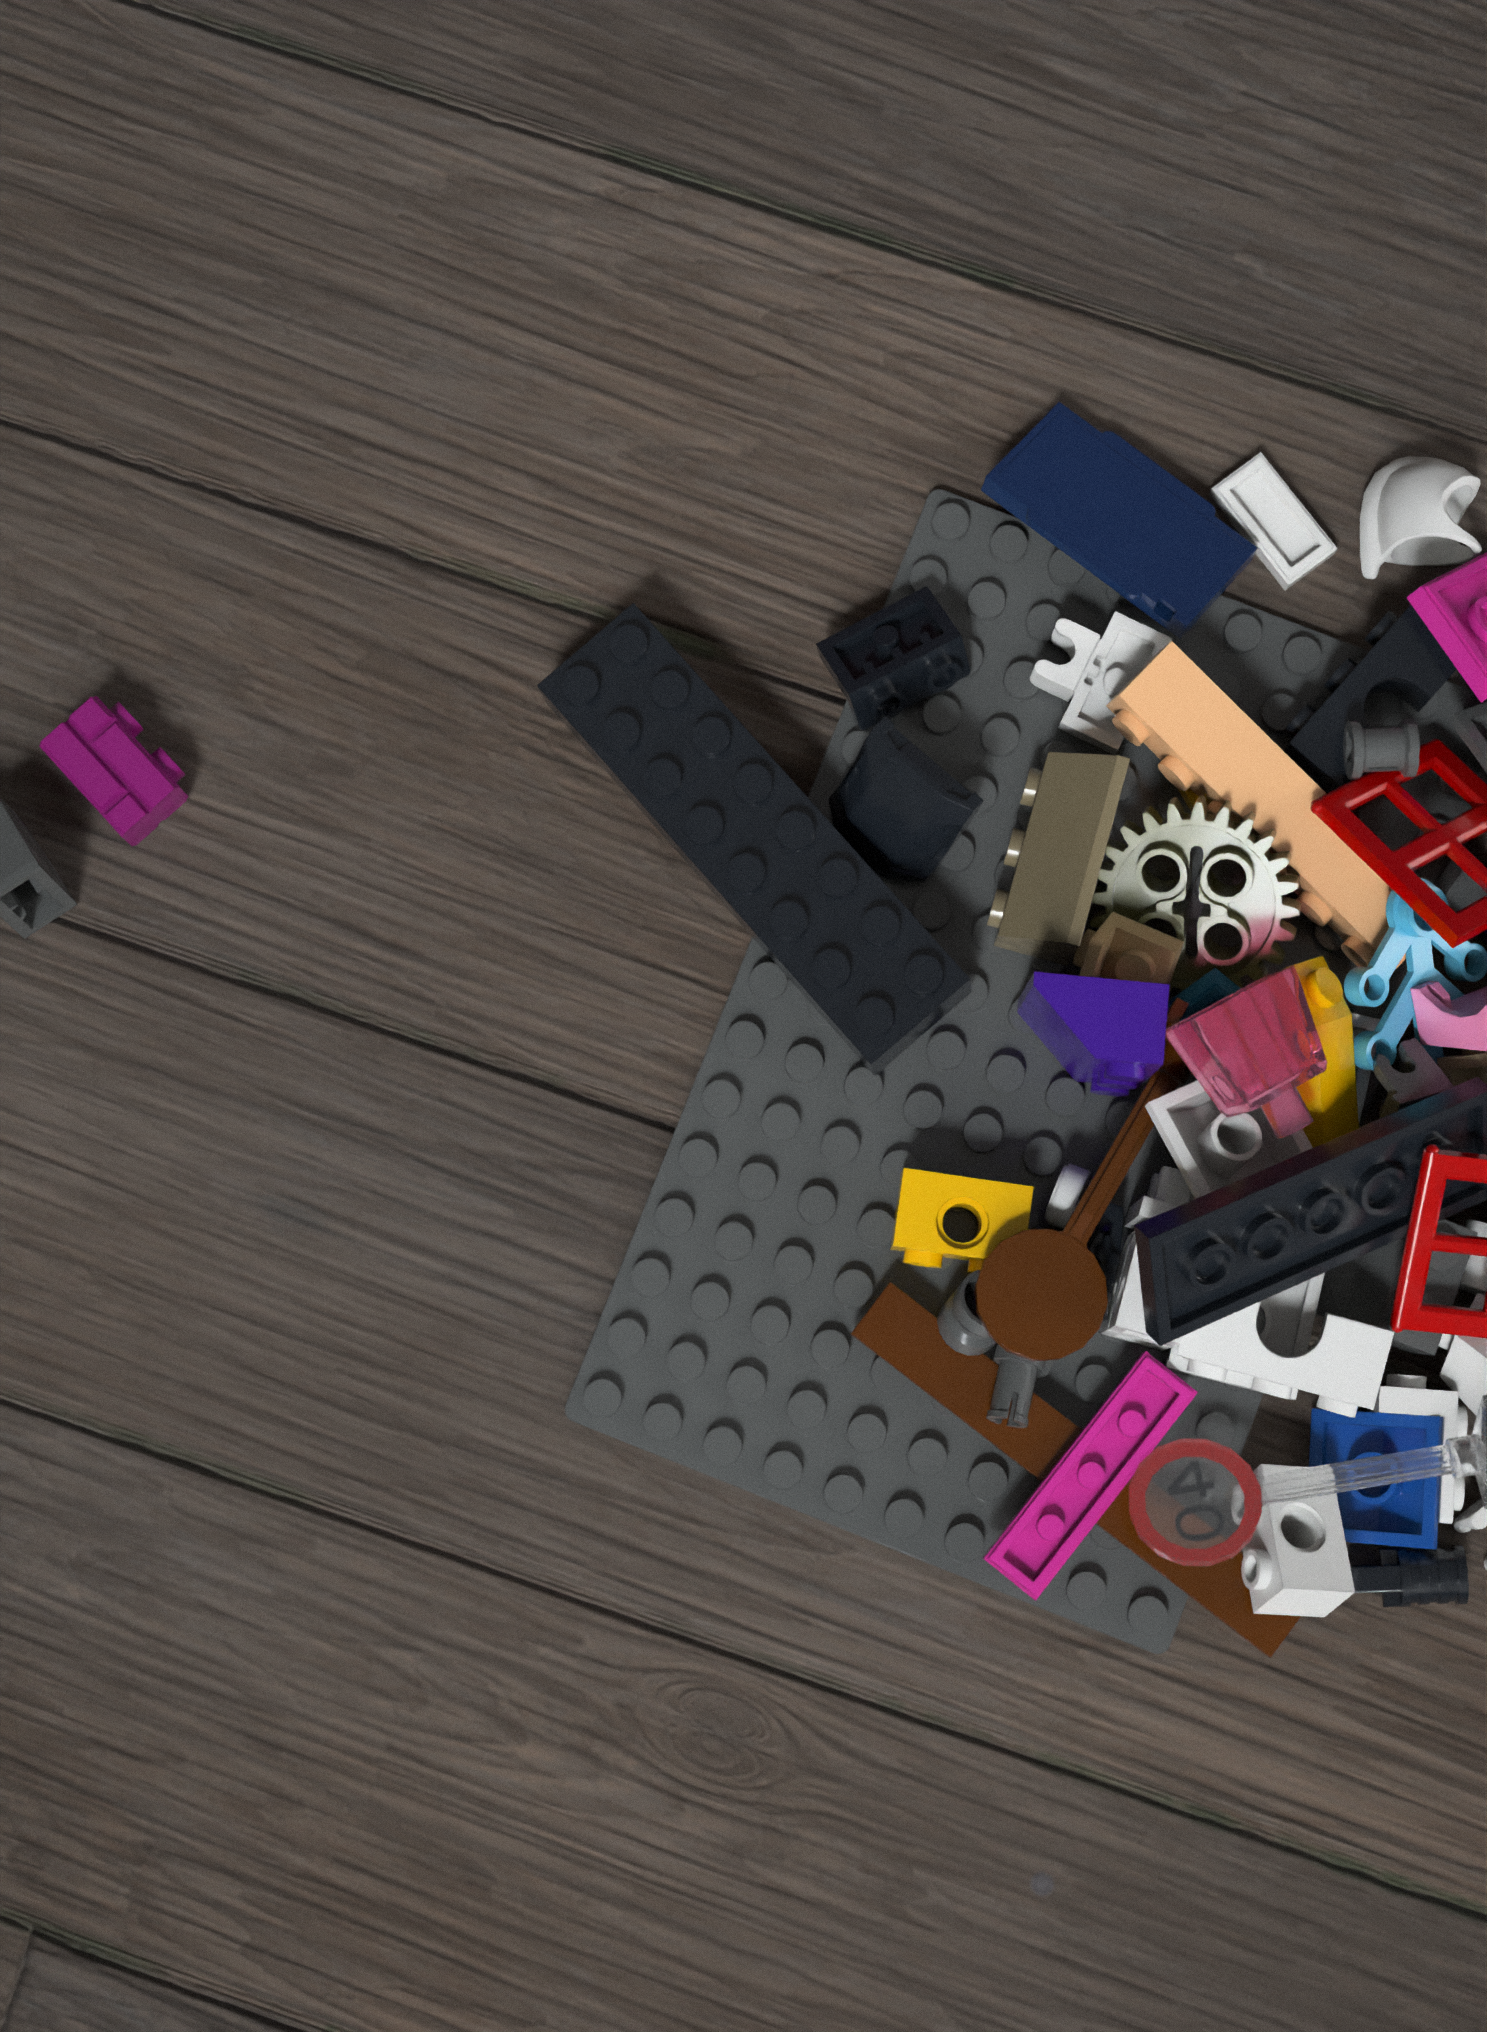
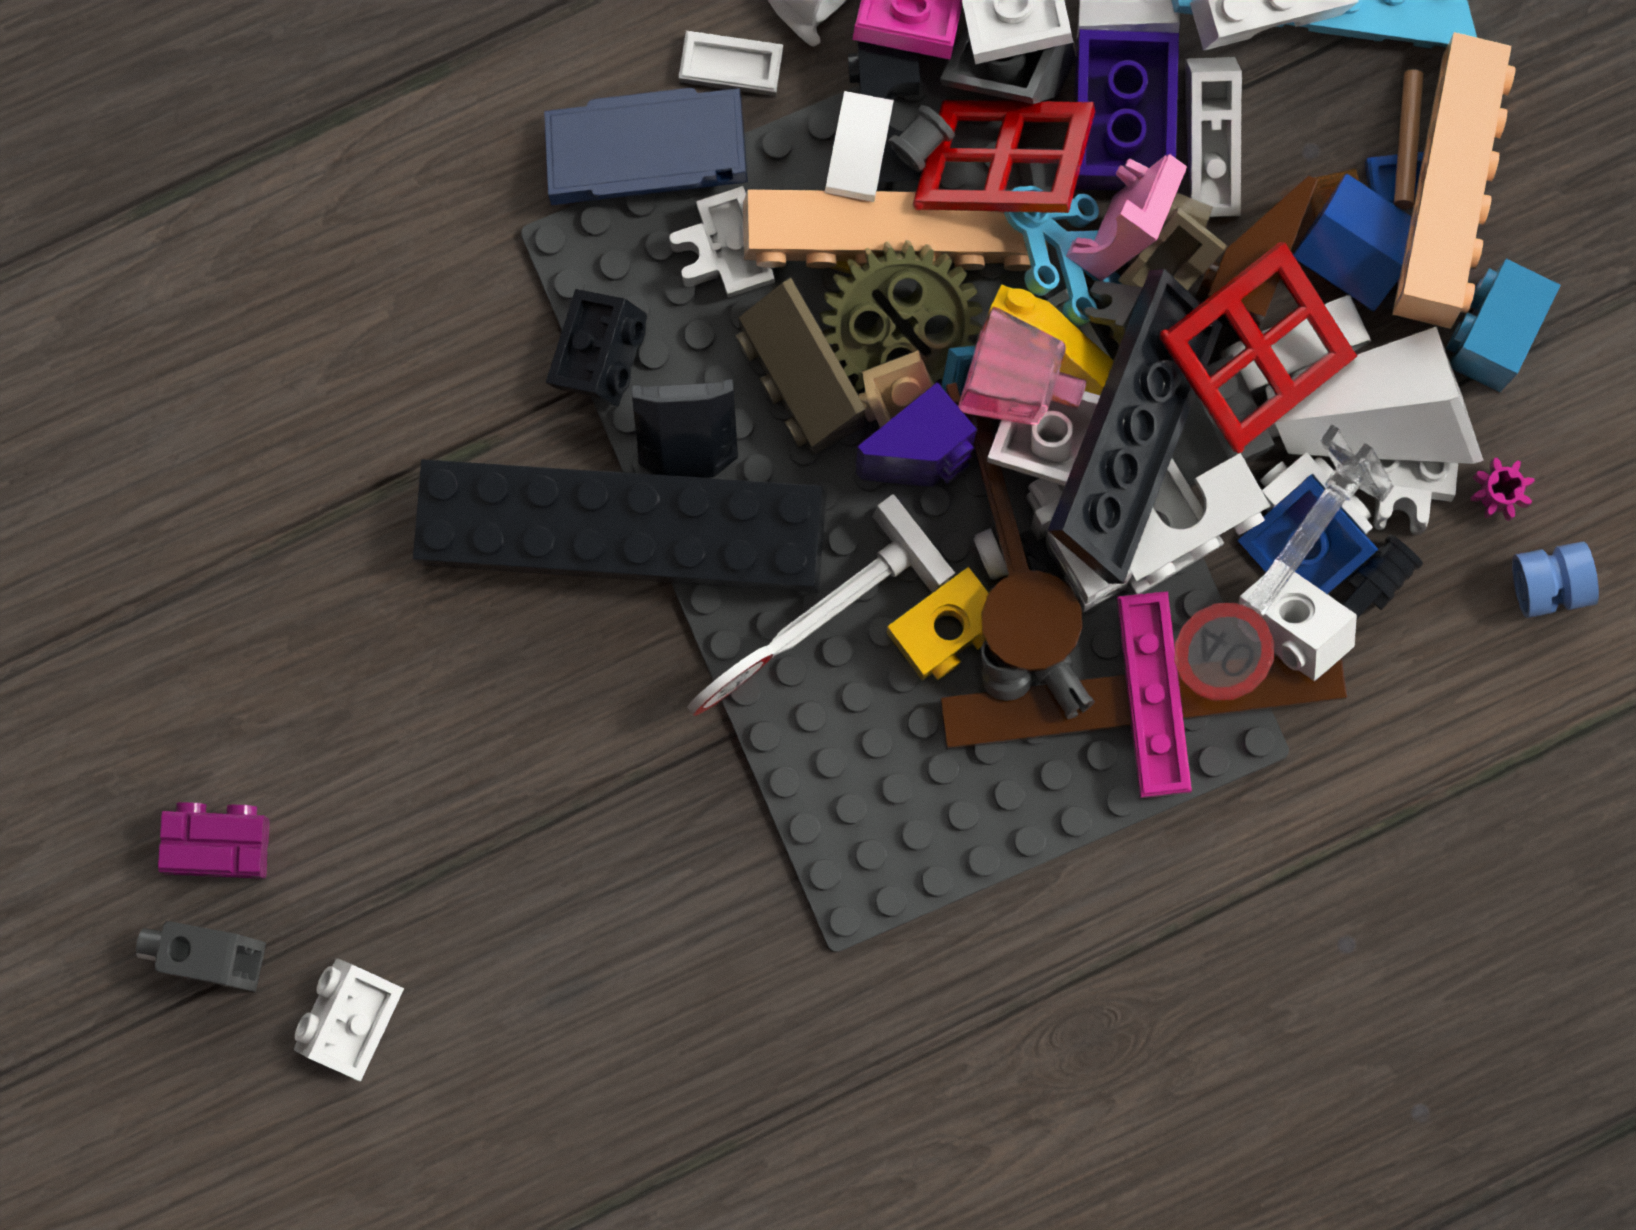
camera: 50 degrees left, 0 degrees up
(74, 1042) = (347, 1018): none -> white bracket
(994, 1115) = (907, 549): none -> white piece
(1315, 701) = (859, 146): none -> white slope

